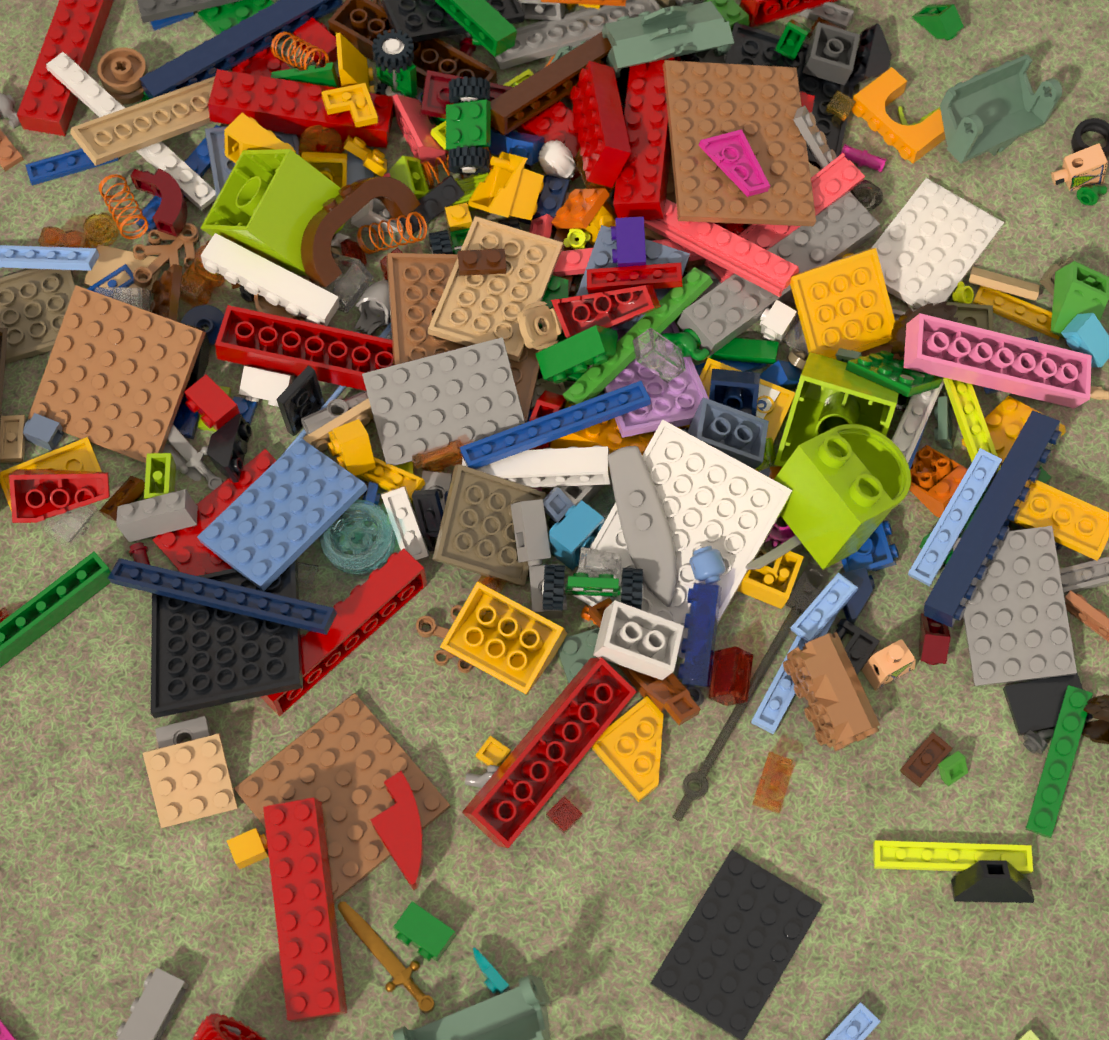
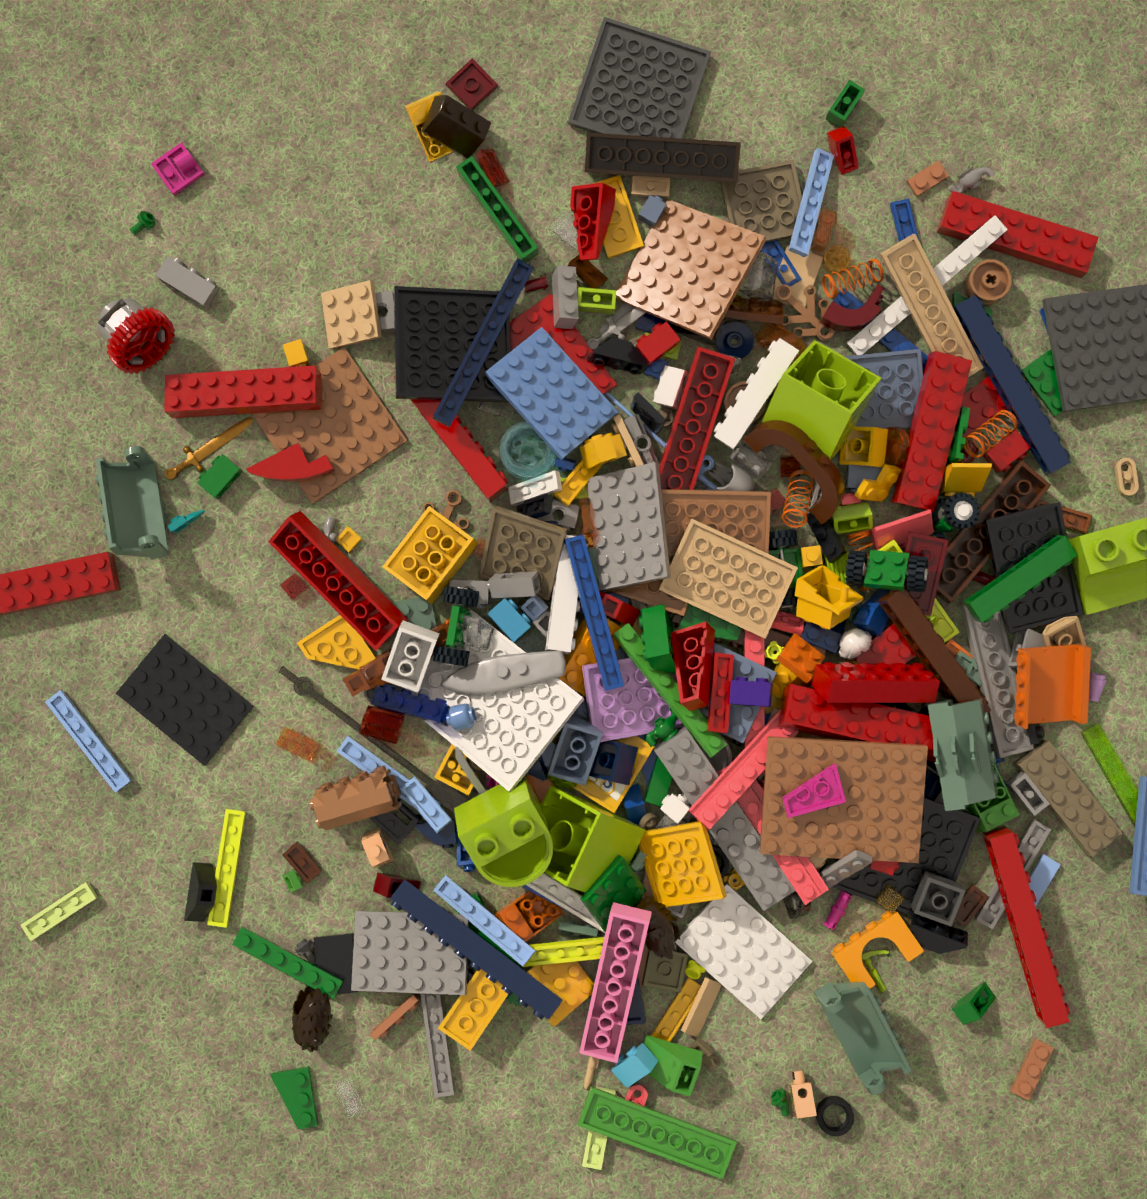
camera: 100 degrees right, 20 degrees up
(247, 134) = (892, 385): yellow slope -> none
(352, 98) = (925, 477): yellow plate -> none
(481, 262) = (750, 568): reddish brown plate -> none
(530, 331) = (684, 600): tan plate -> none
(659, 355) = (647, 704): clear brick -> none
(792, 39) = (956, 867): green slope -> none

